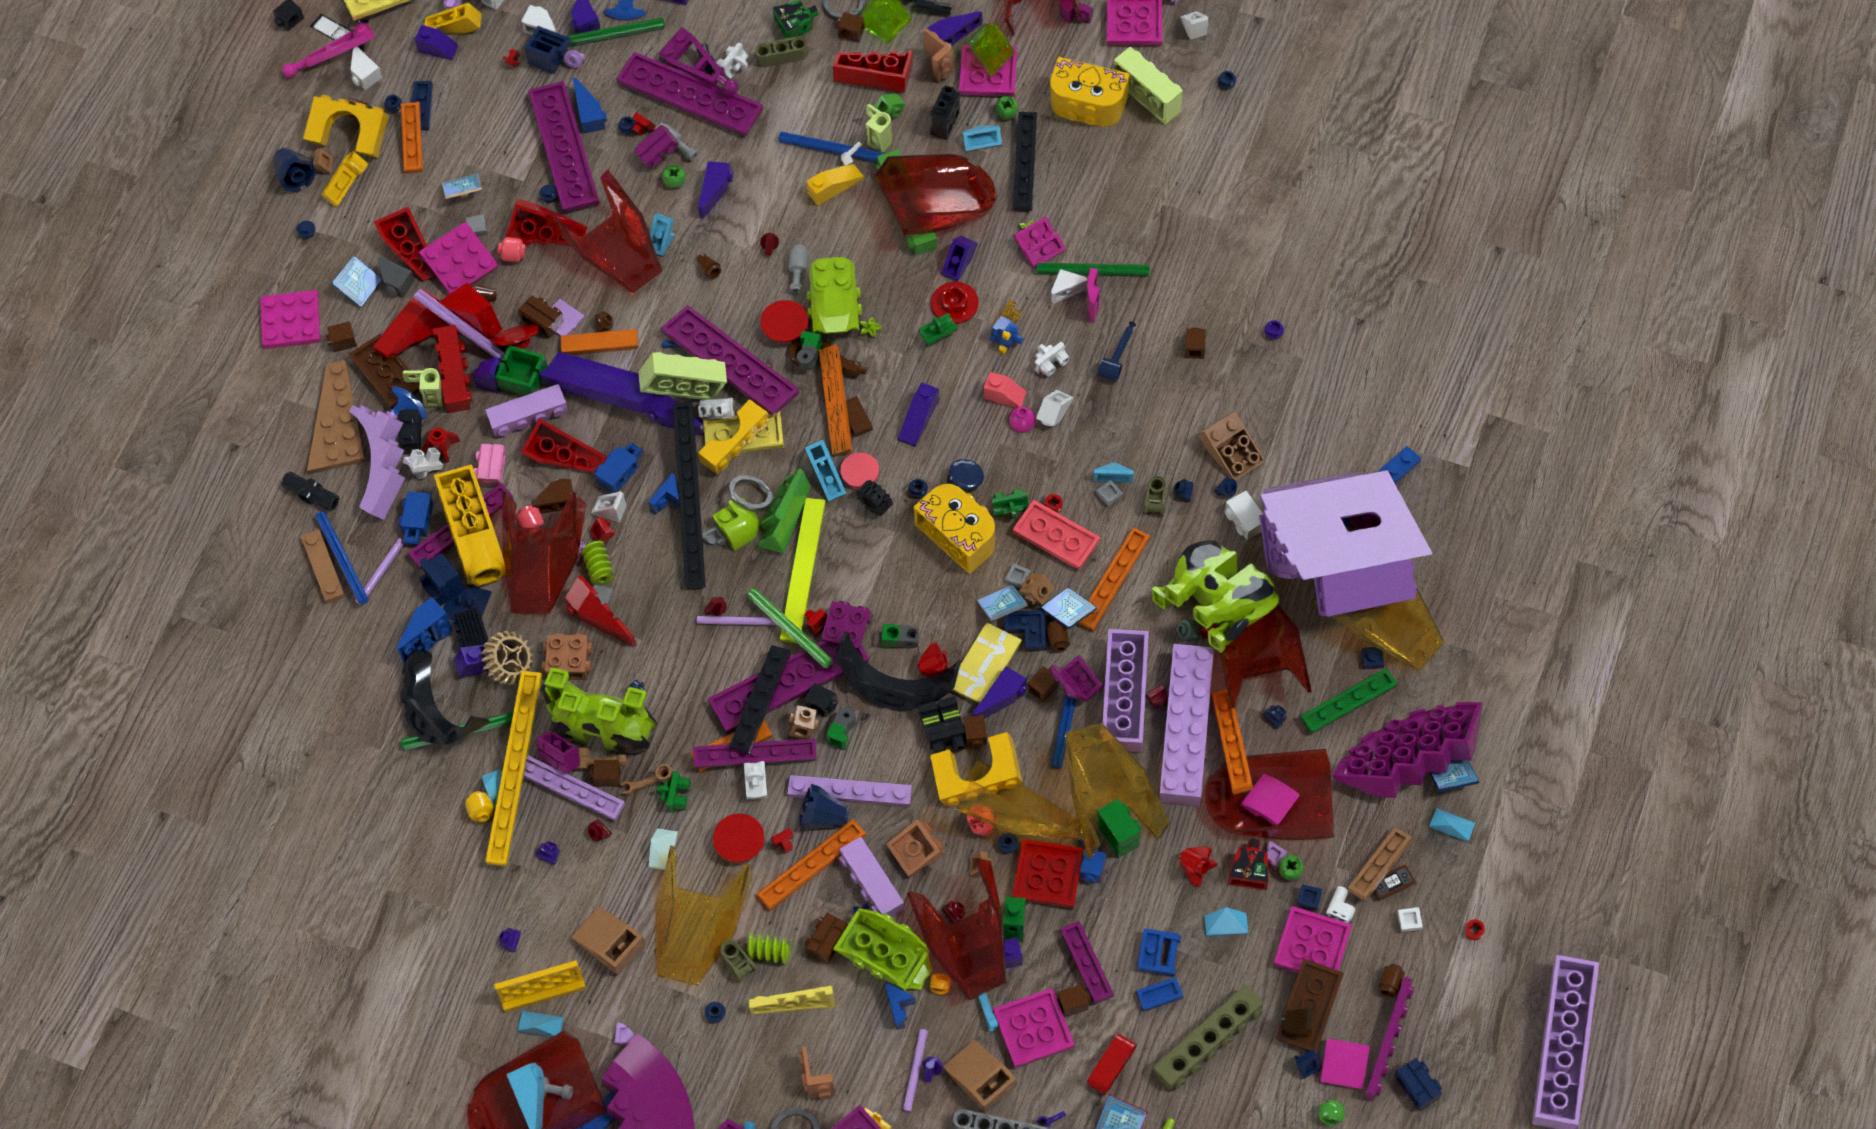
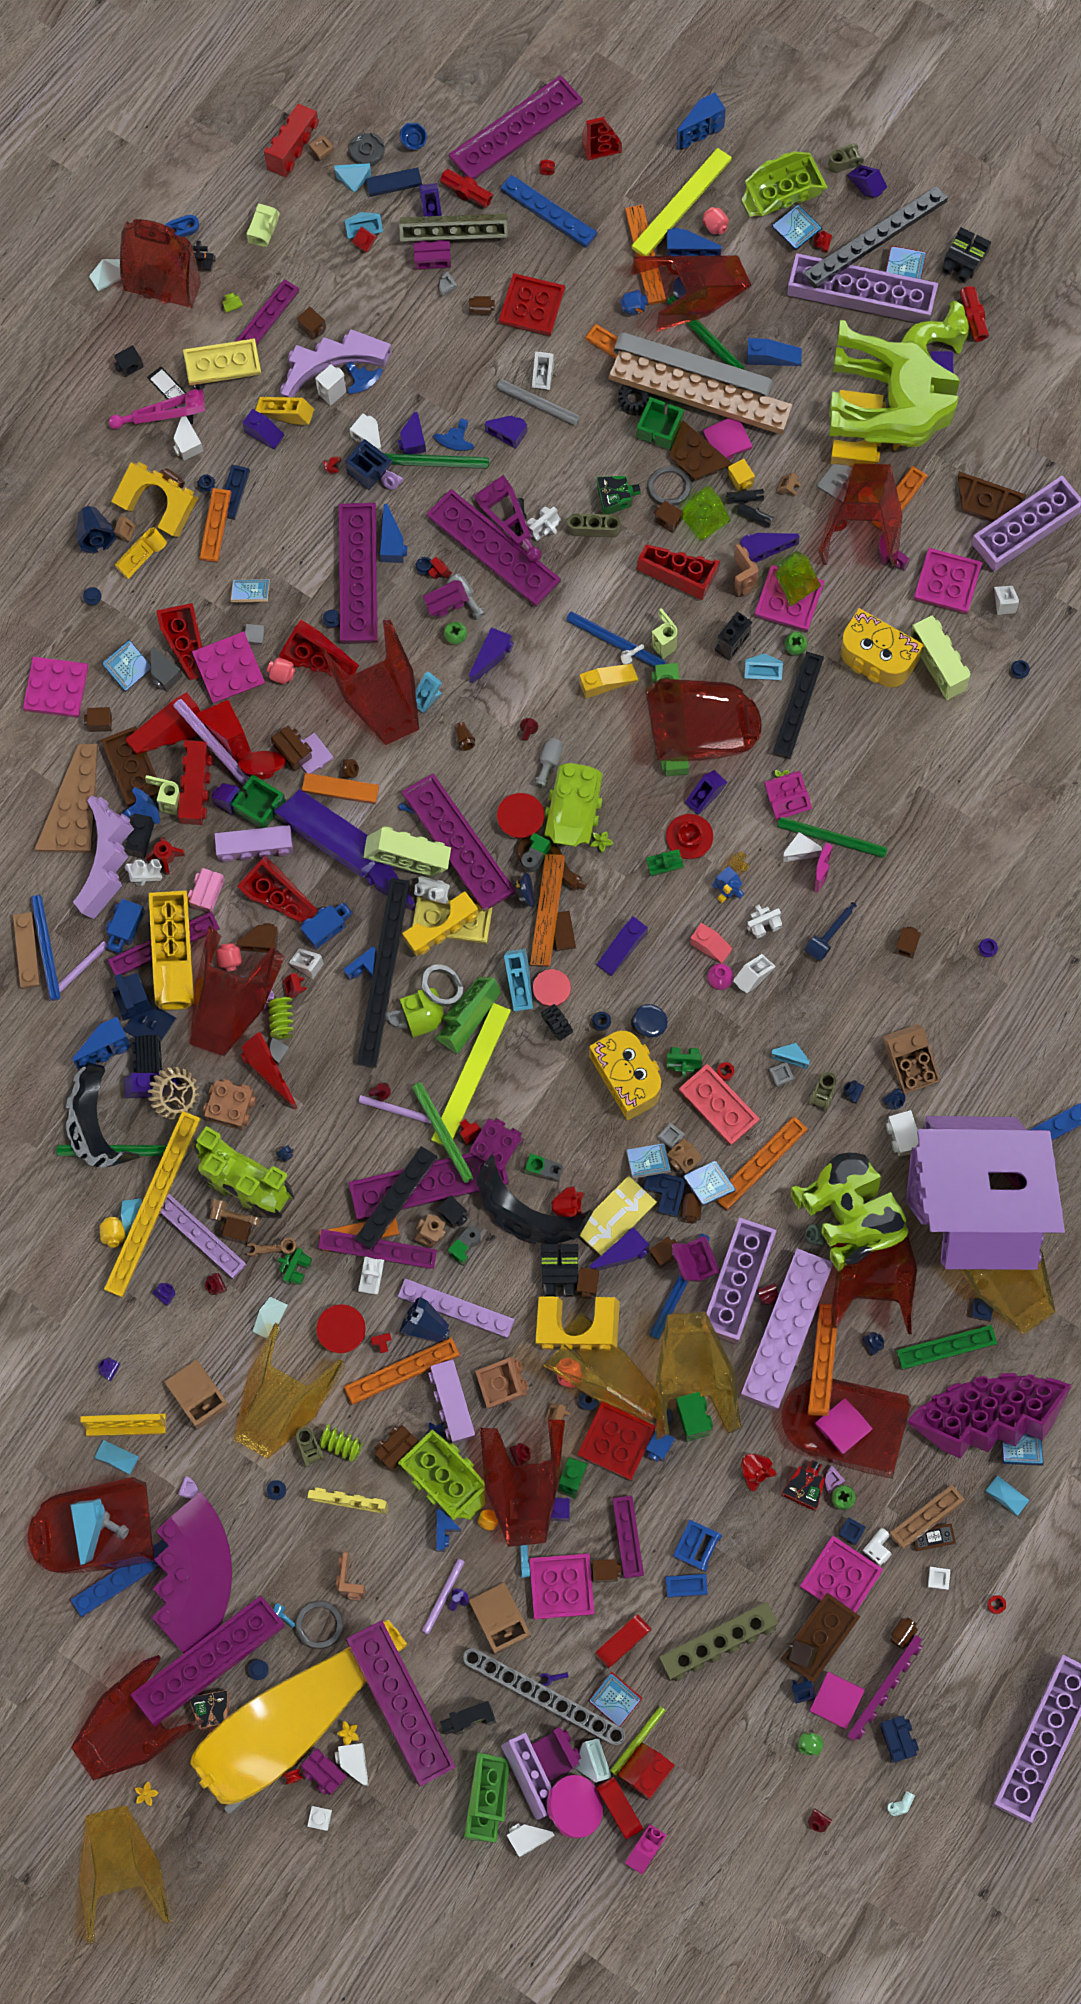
camera: 15 degrees right, 10 degrees up
(310, 491) = (32, 871): black piece -> none
(486, 292) = (243, 709): reddish brown cone -> none
(558, 752) = (196, 1199): magenta brick -> none
(807, 387) = (524, 890): none -> dark blue piece
(893, 106) = (682, 613): bright green brick -> none
(1226, 922) = (767, 1534): medium azure slope -> none

